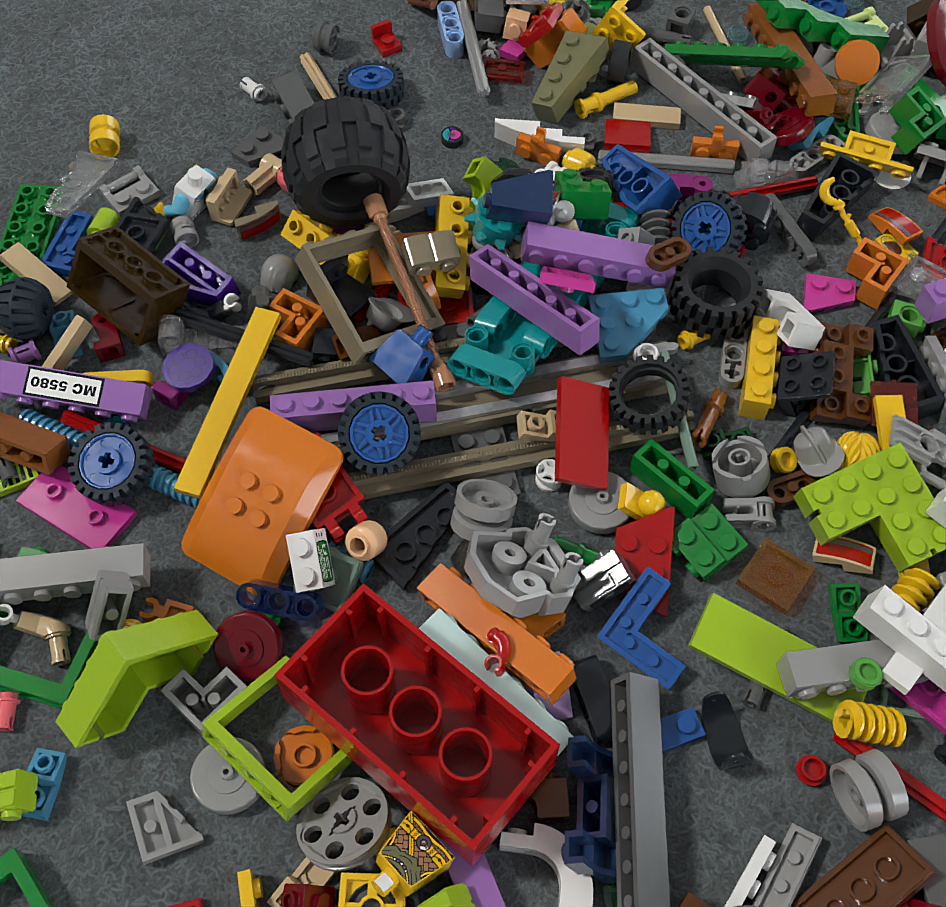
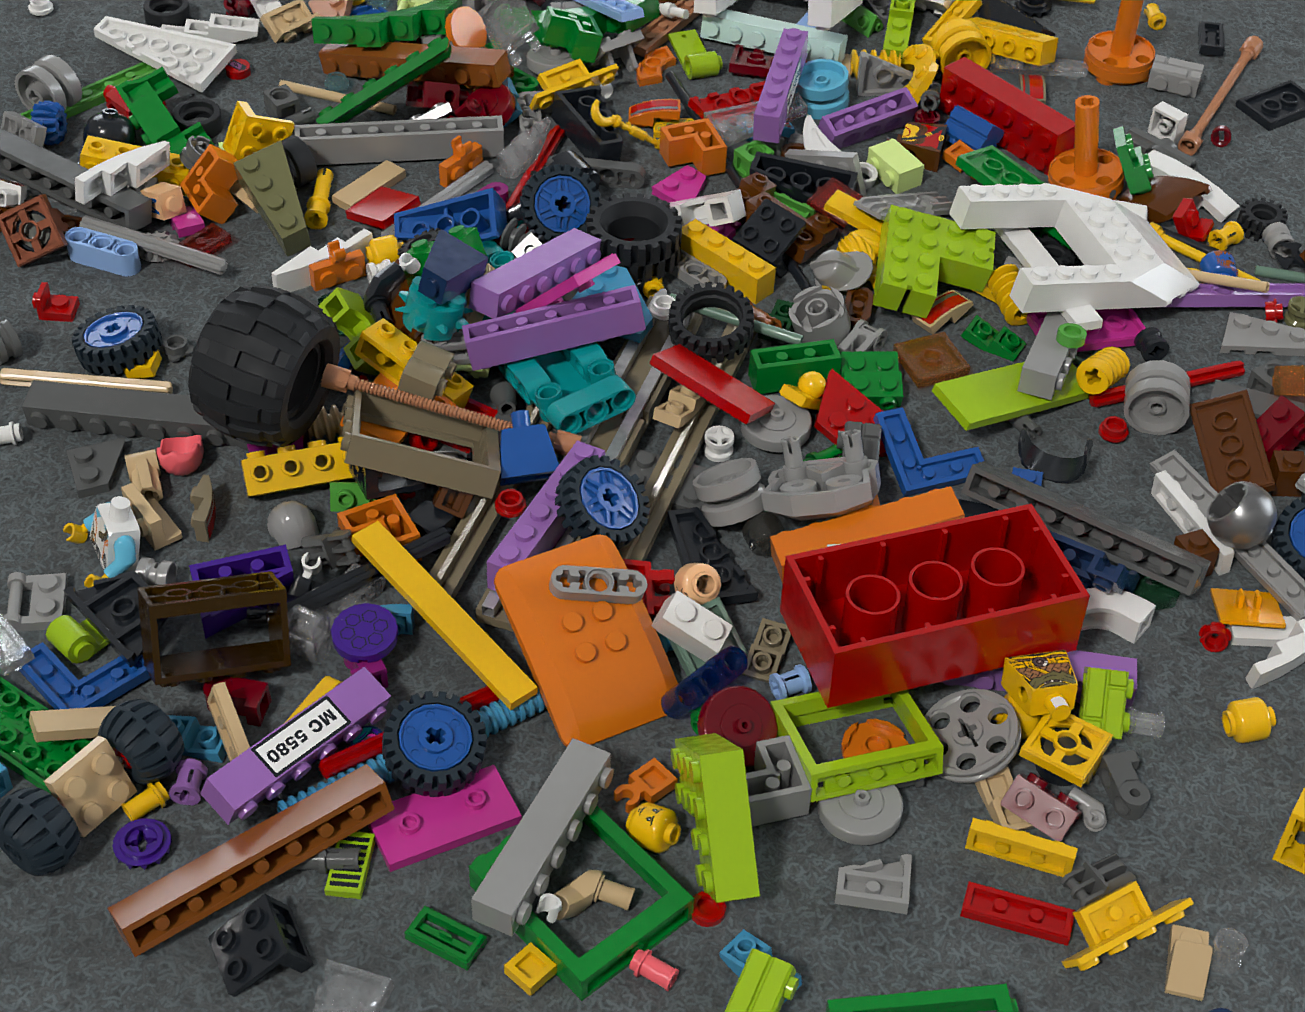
camera: 60 degrees left, 15 degrees down
(108, 603) = (625, 792): light grey brick -> none
(301, 486) = (574, 573): none -> light grey beam
(357, 373) = (510, 503): none -> red plate
(502, 644) = (890, 522): red arm -> none
(540, 24) = (200, 172): red plate -> none
(668, 254) = (584, 228): reddish brown plate -> none

